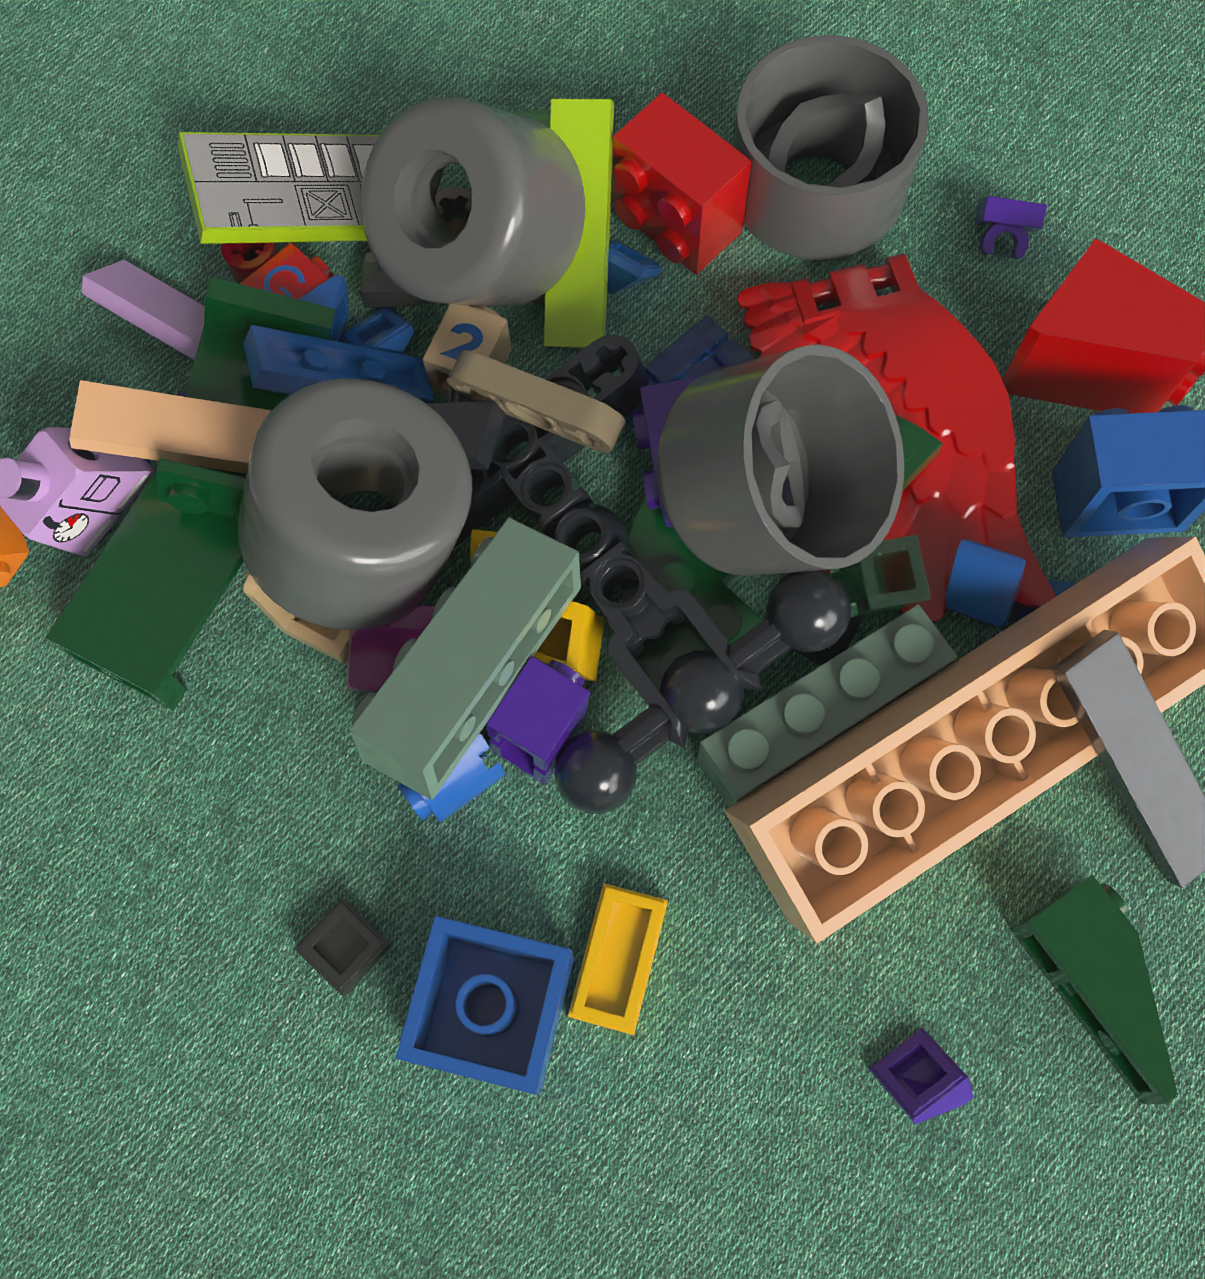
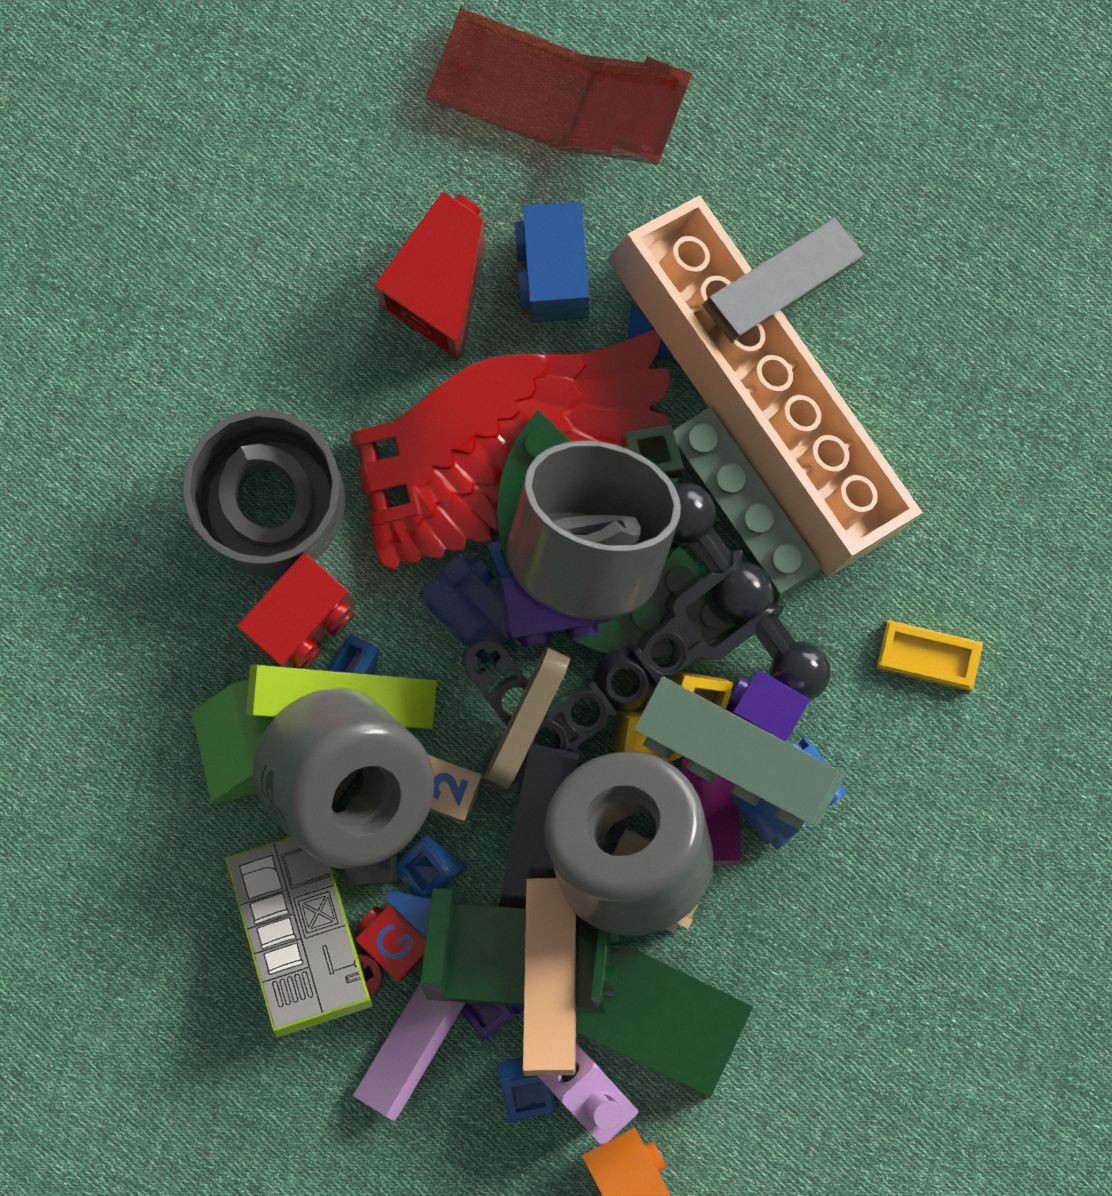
camera: 90 degrees left, 10 degrees up
(293, 361) = (480, 886): blue plate -> none
(343, 947) = (929, 856): pearl dark grey tile -> none
(486, 1005) = (971, 742): blue brick -> none
(922, 1078) = (1003, 443): dark purple slope -> none
(984, 583) = (649, 383): blue slope -> none
(1009, 217) = (310, 342): dark purple tile -> none
(1102, 976) = (926, 318): dark green slope -> none

